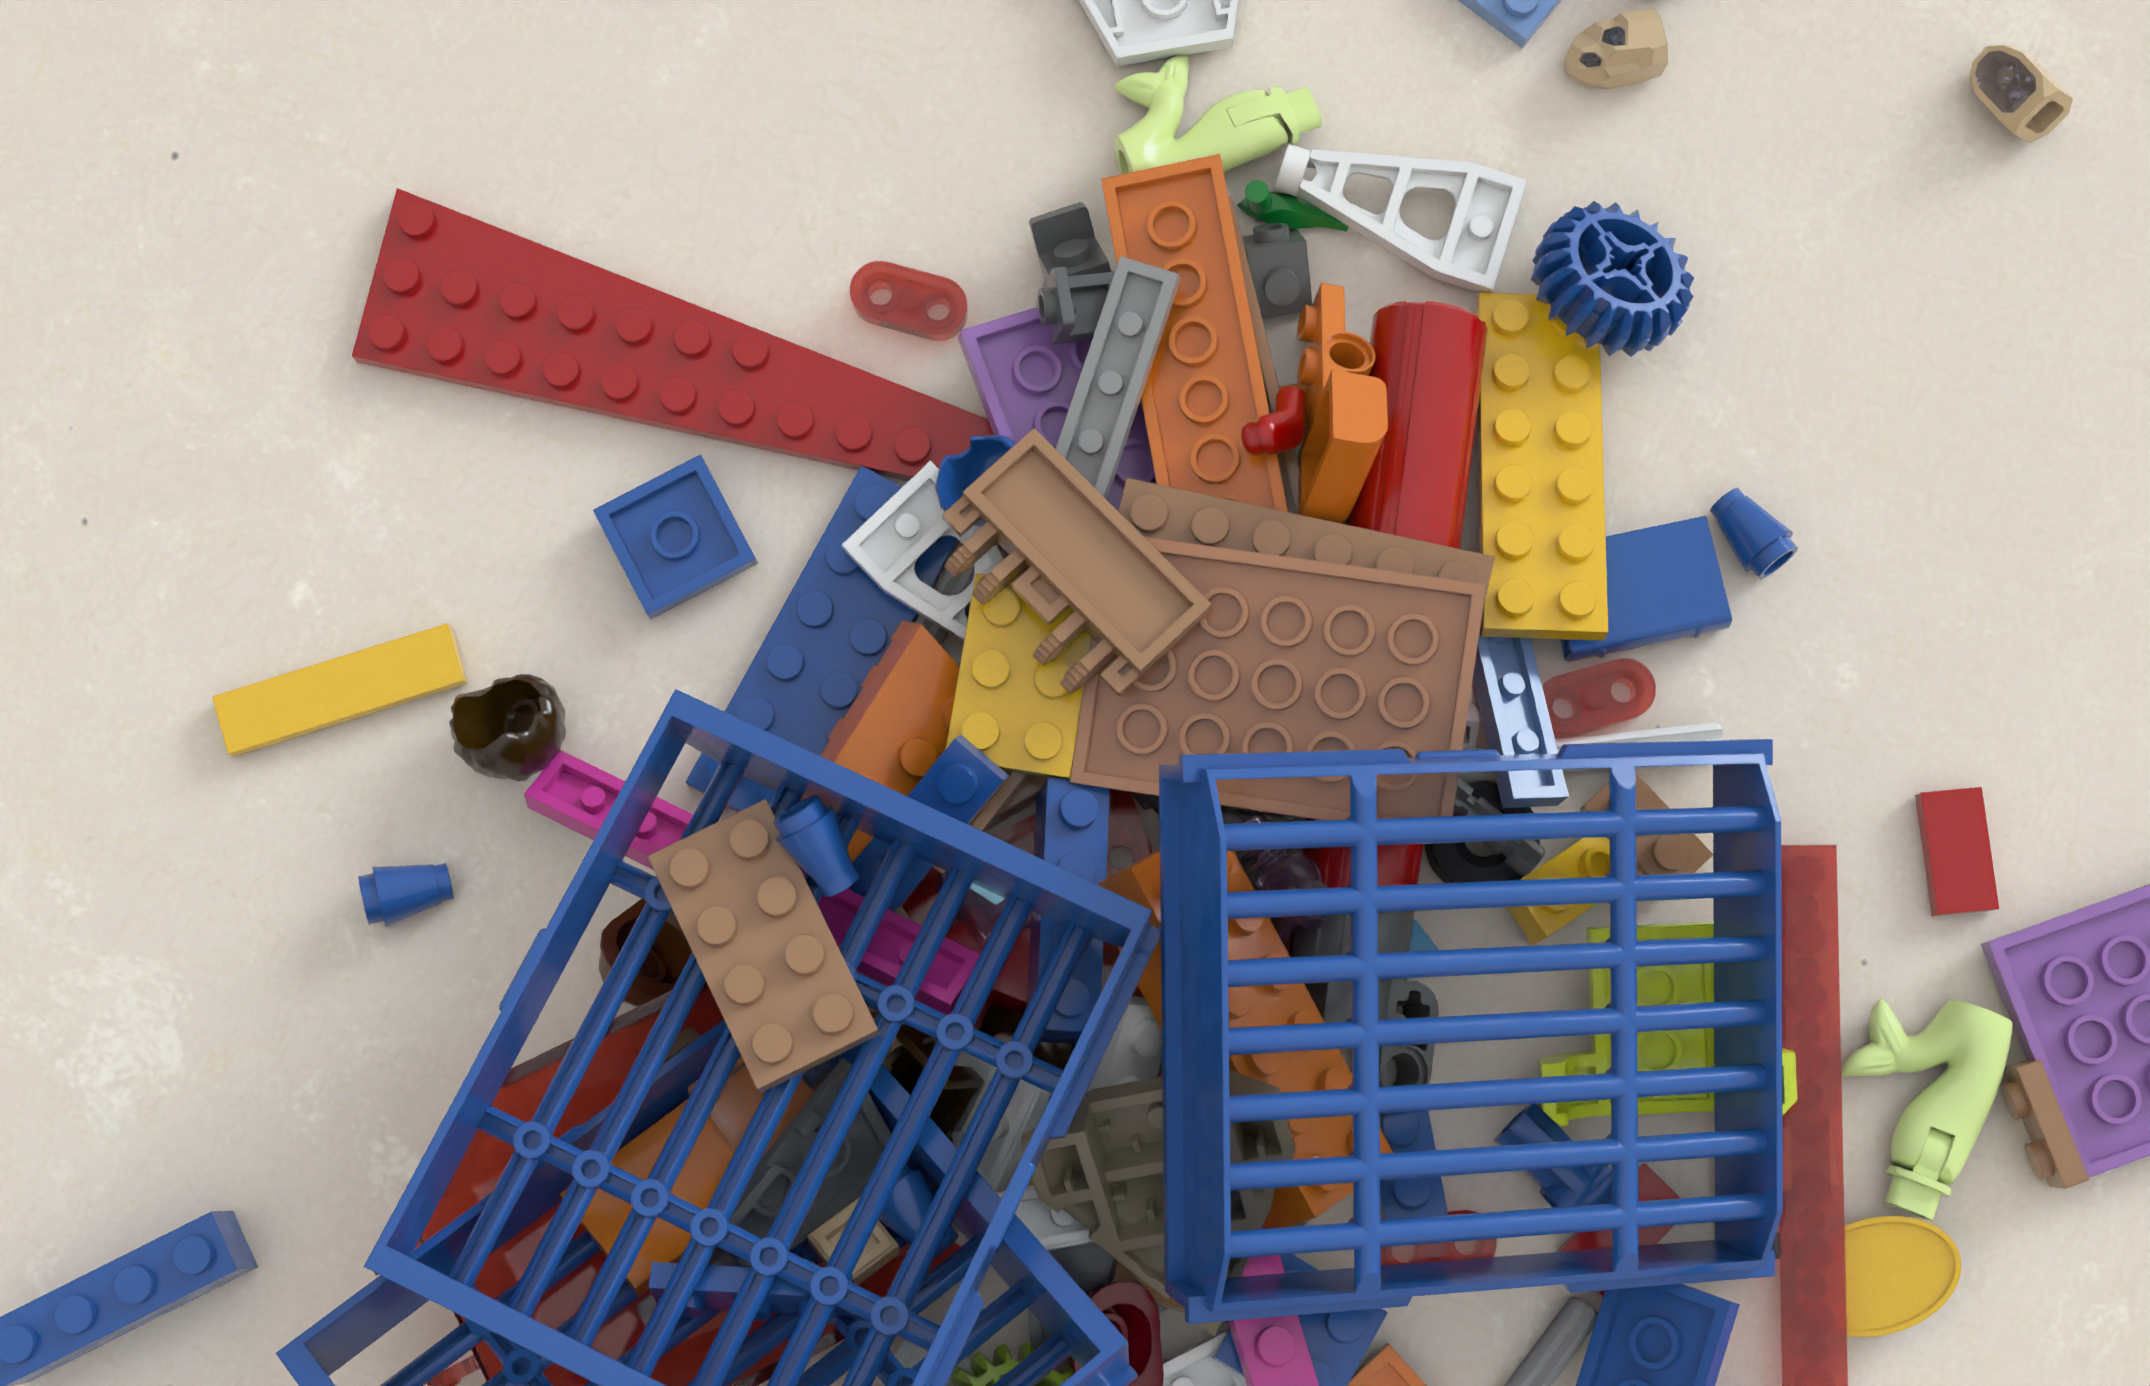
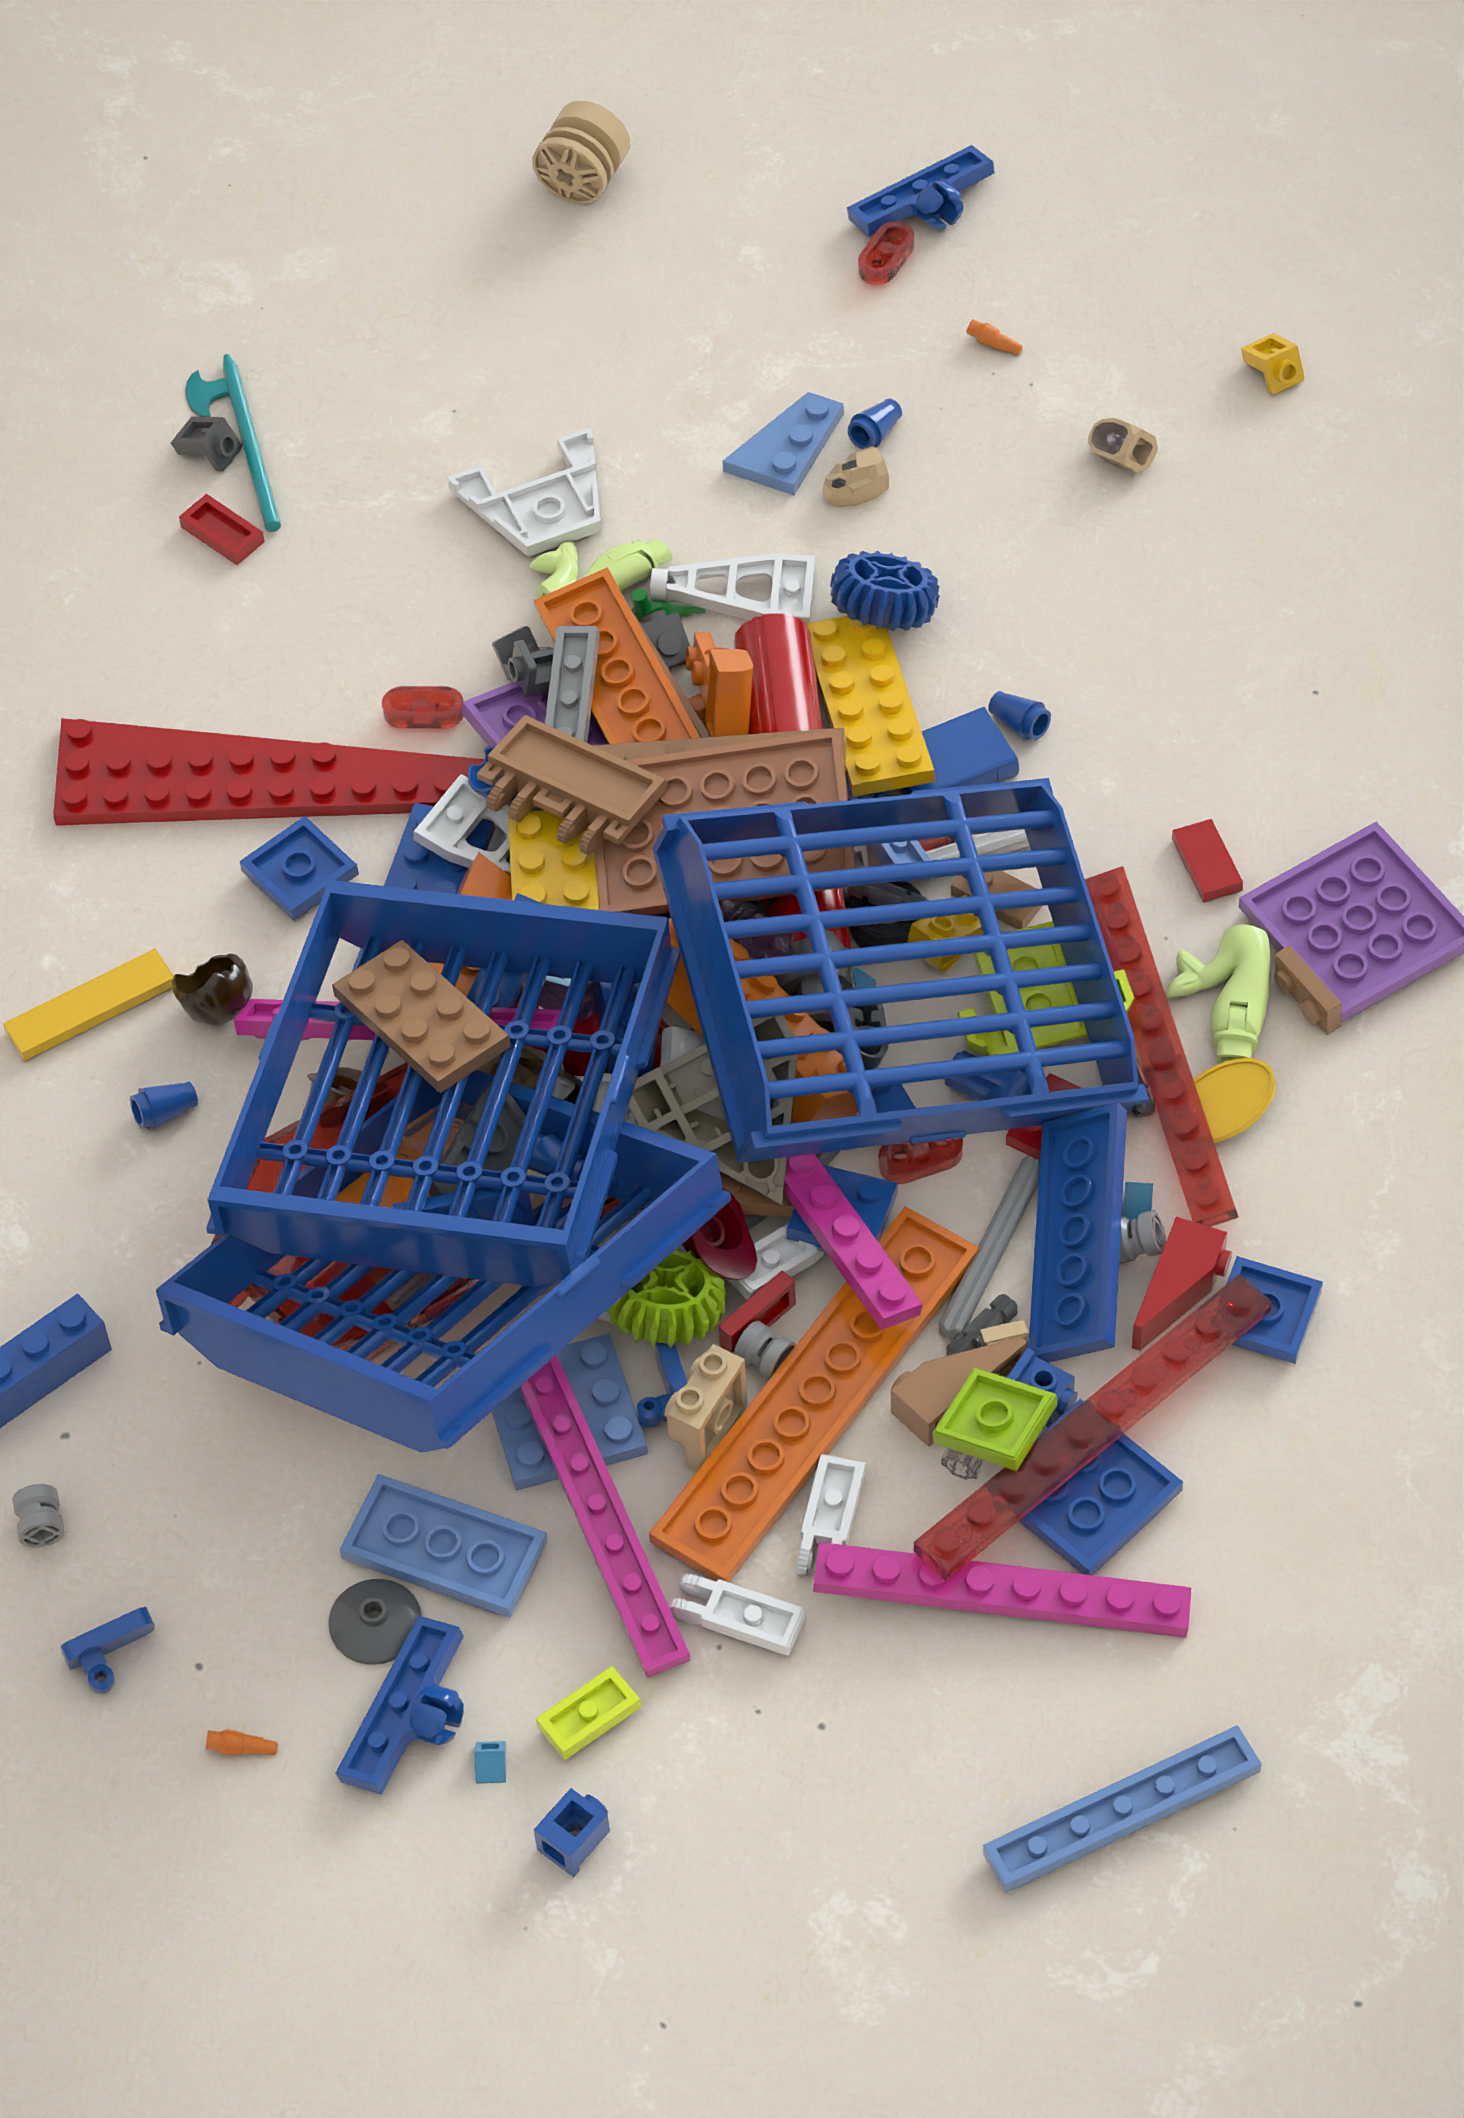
camera: 10 degrees left, 25 degrees down
(816, 843) = (442, 950): blue cone -> none
(1278, 430) = (684, 699): red arm -> none

